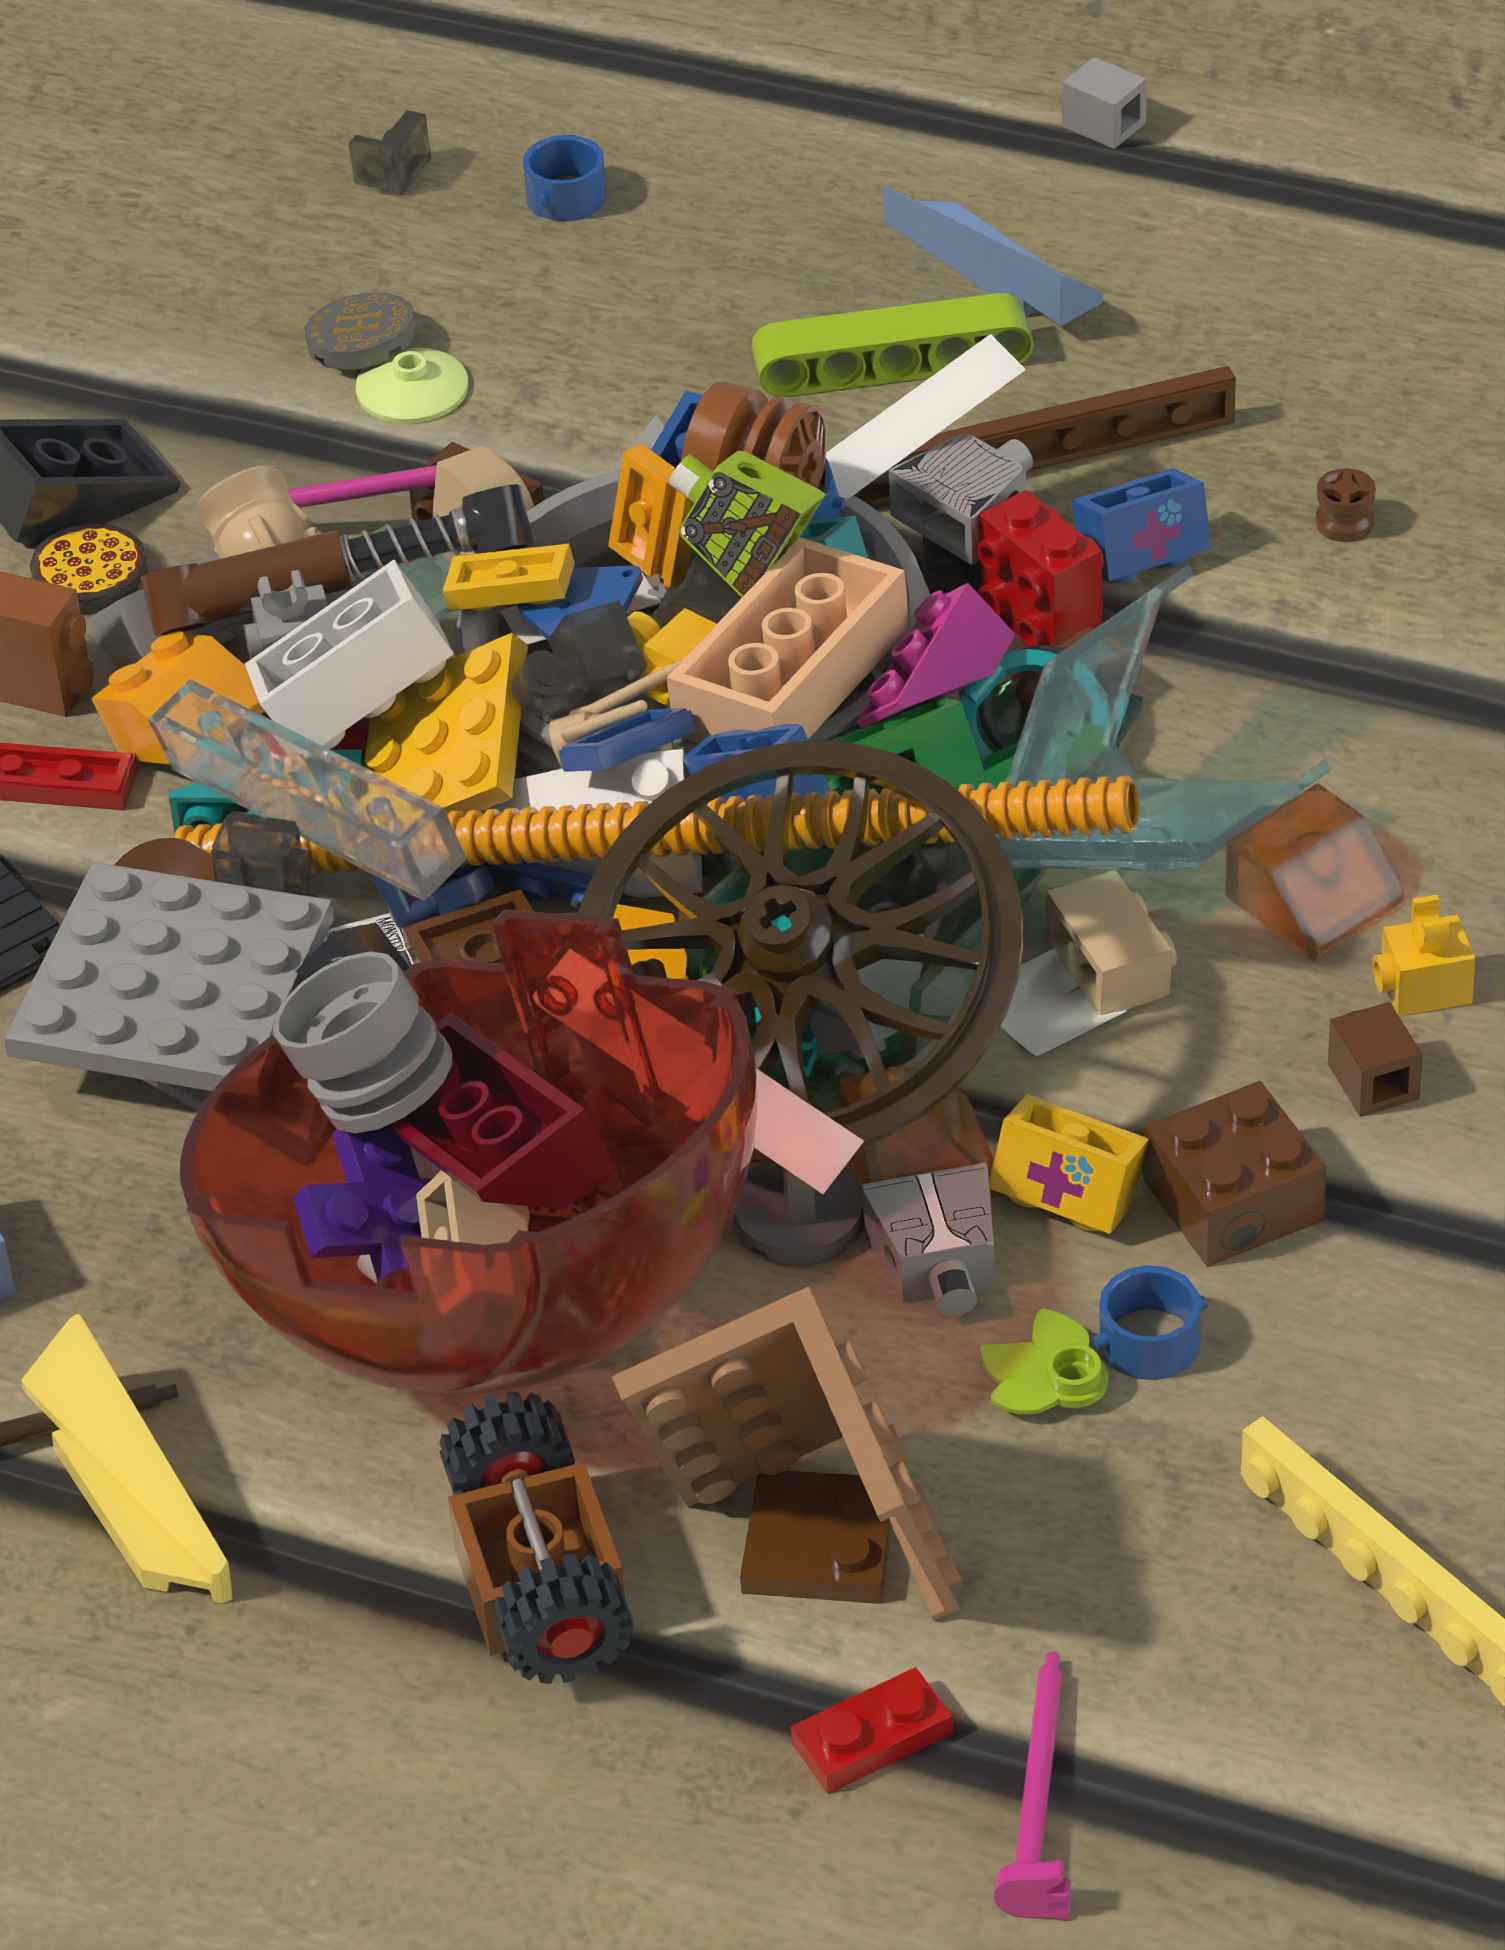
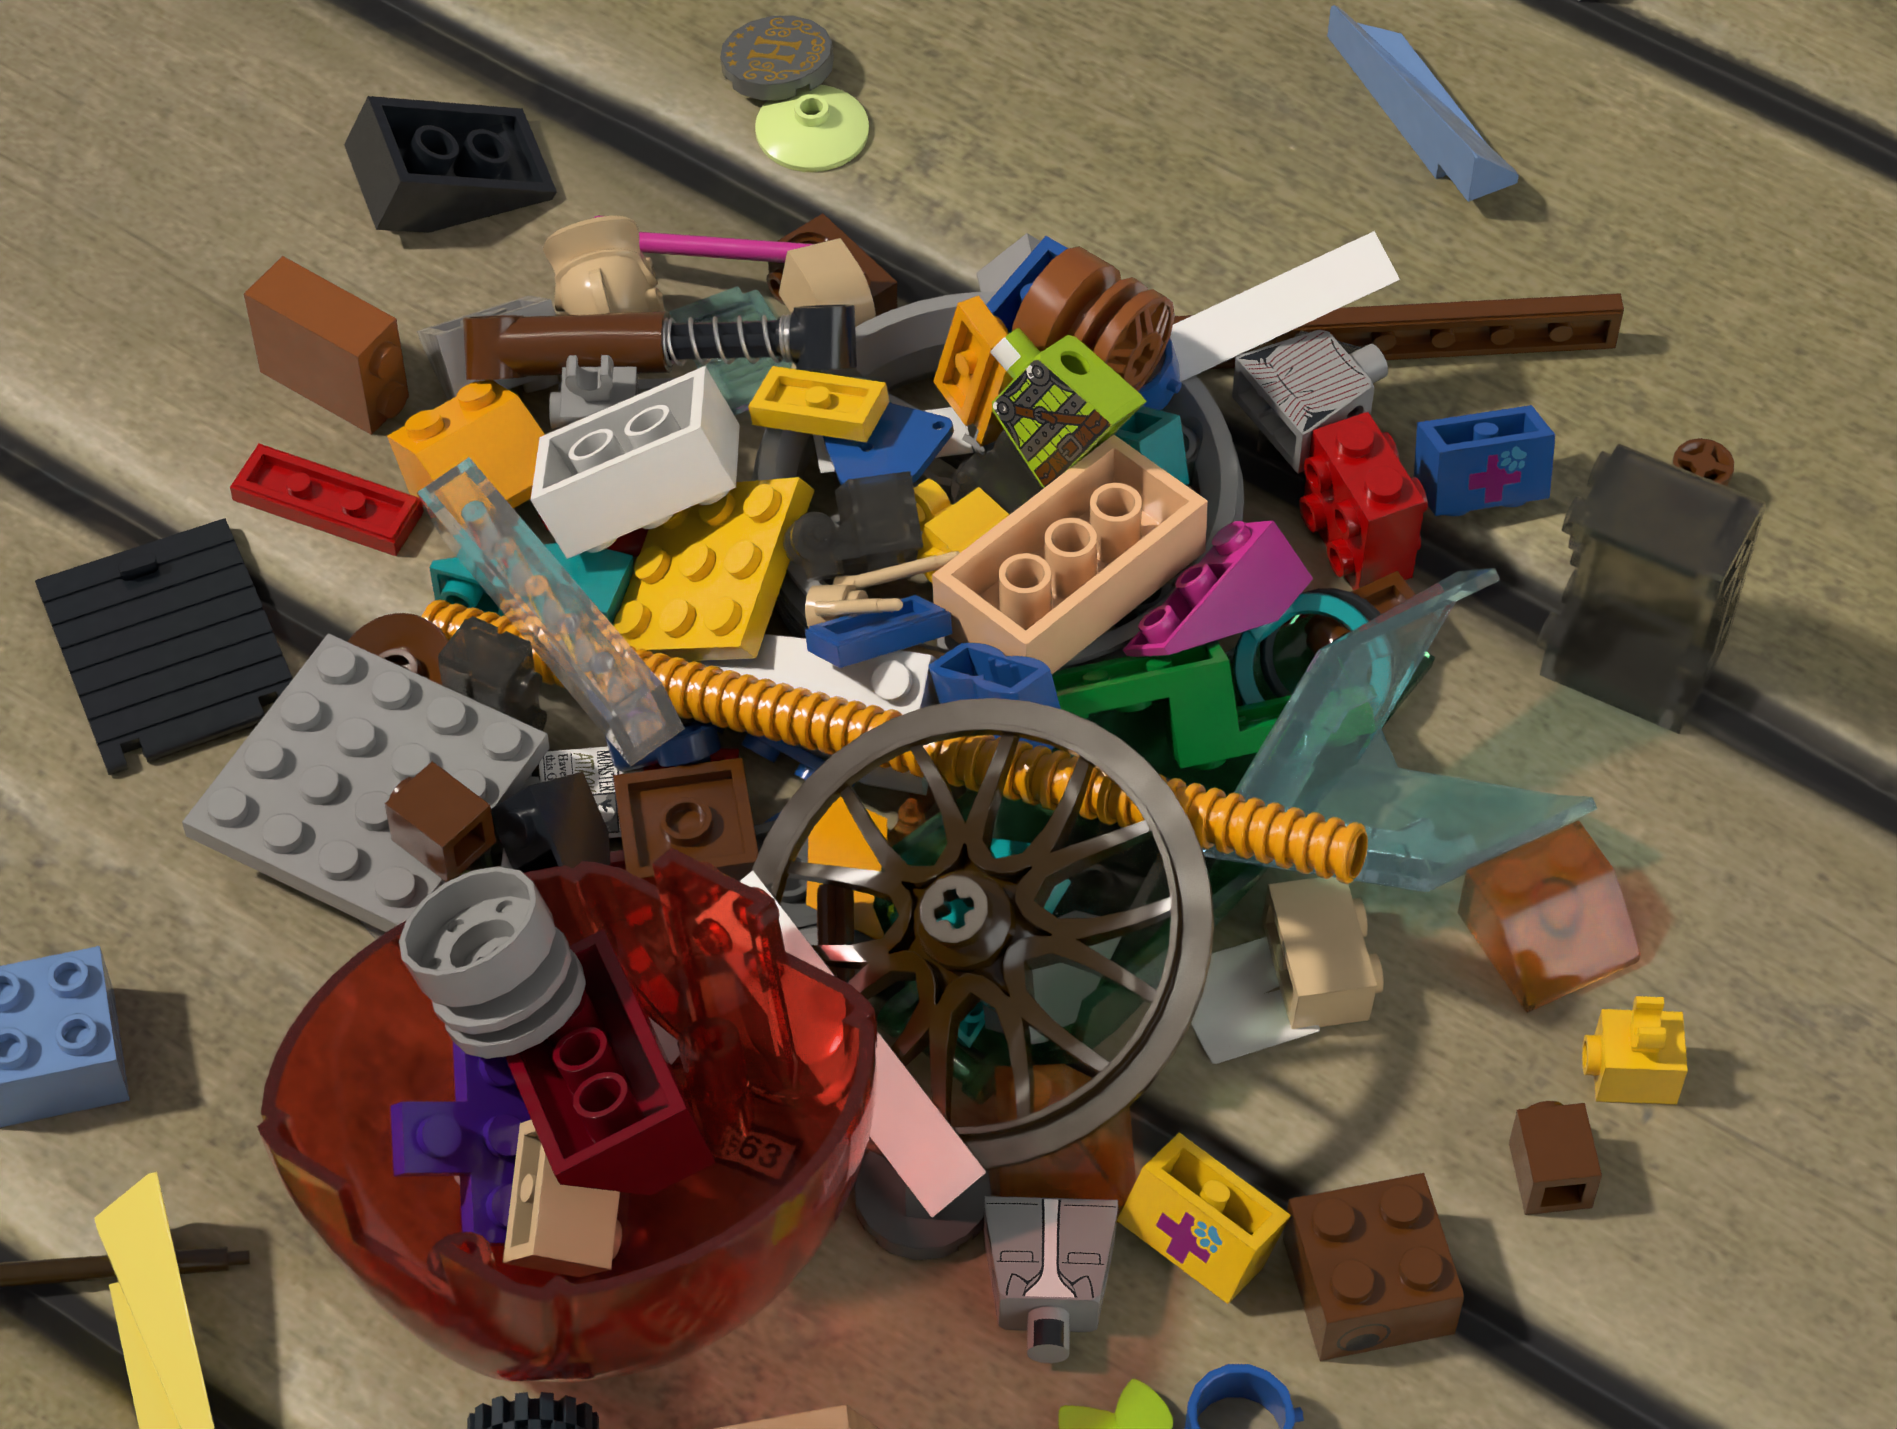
camera: 10 degrees right, 10 degrees up
(93, 559) = (439, 271): tile -> none
(255, 973) = (440, 821): none -> reddish brown brick
(884, 343) = (1293, 187): lime beam -> none
(1328, 578) = (1650, 587): none -> clear smoke windscreen

